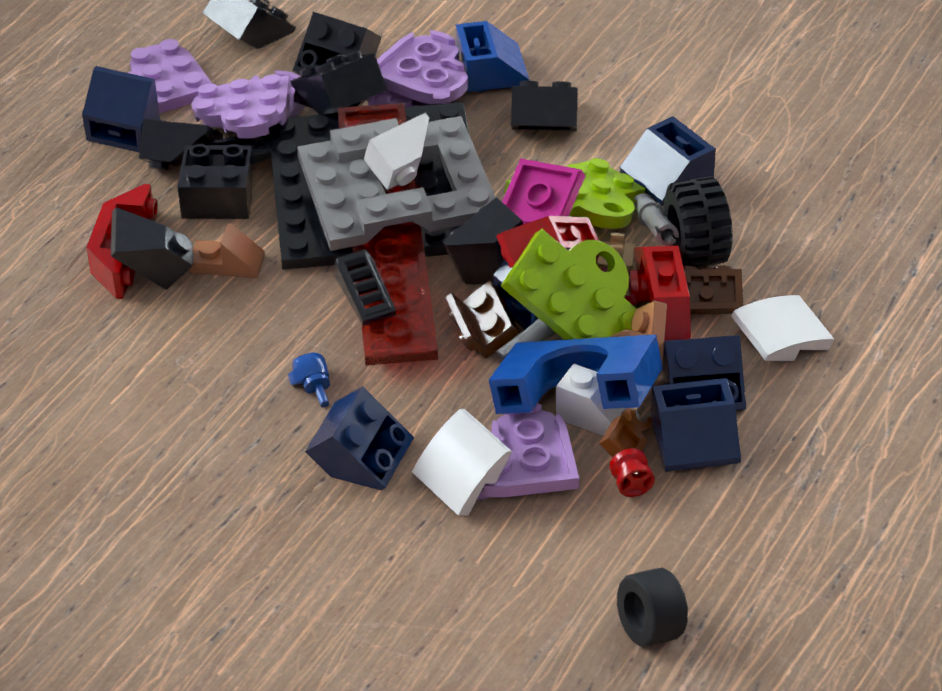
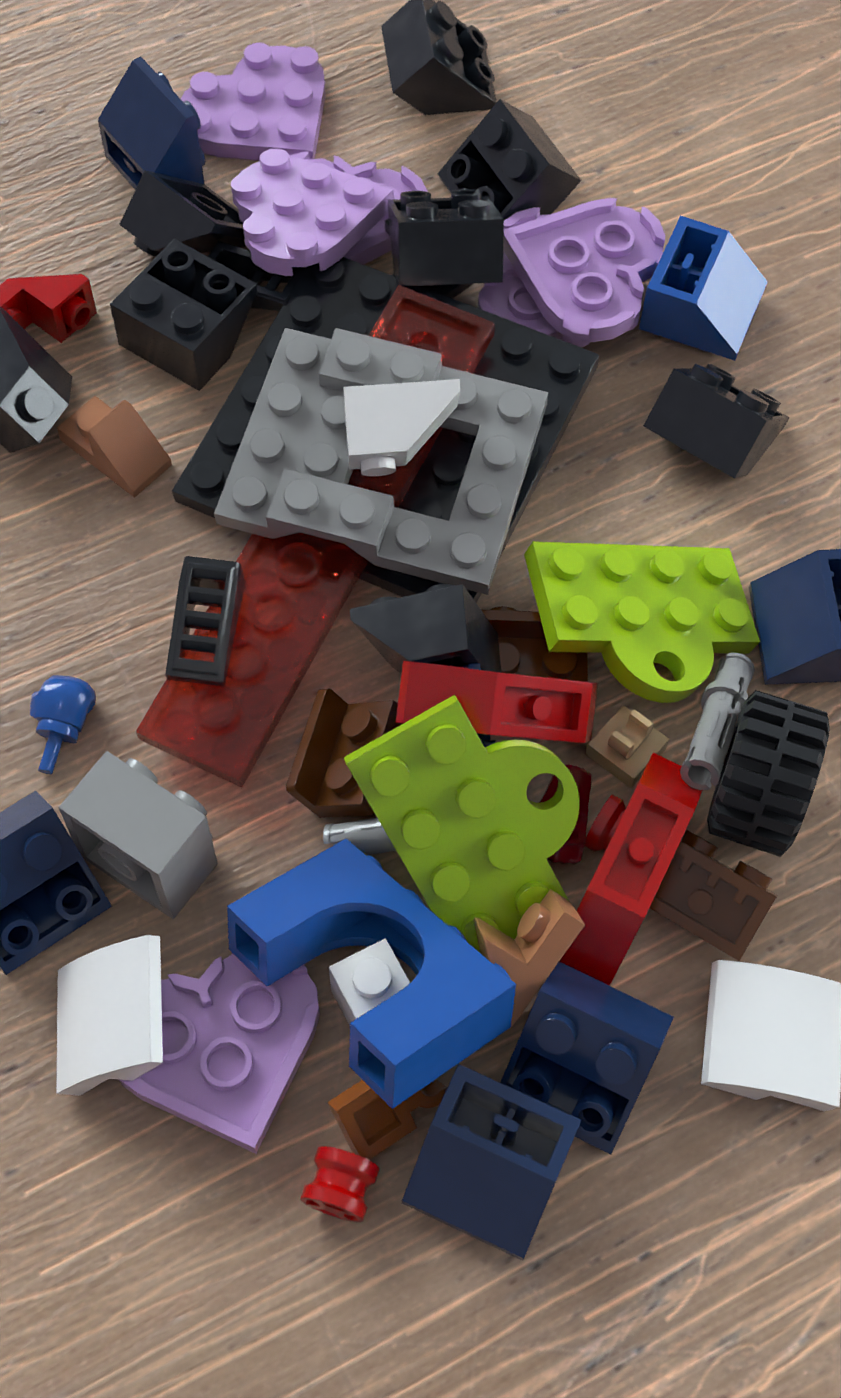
camera: 30 degrees right, 20 degrees up
(413, 384) = (140, 832): none -> light grey brick
(542, 190) = (552, 603): dark pink tile -> none

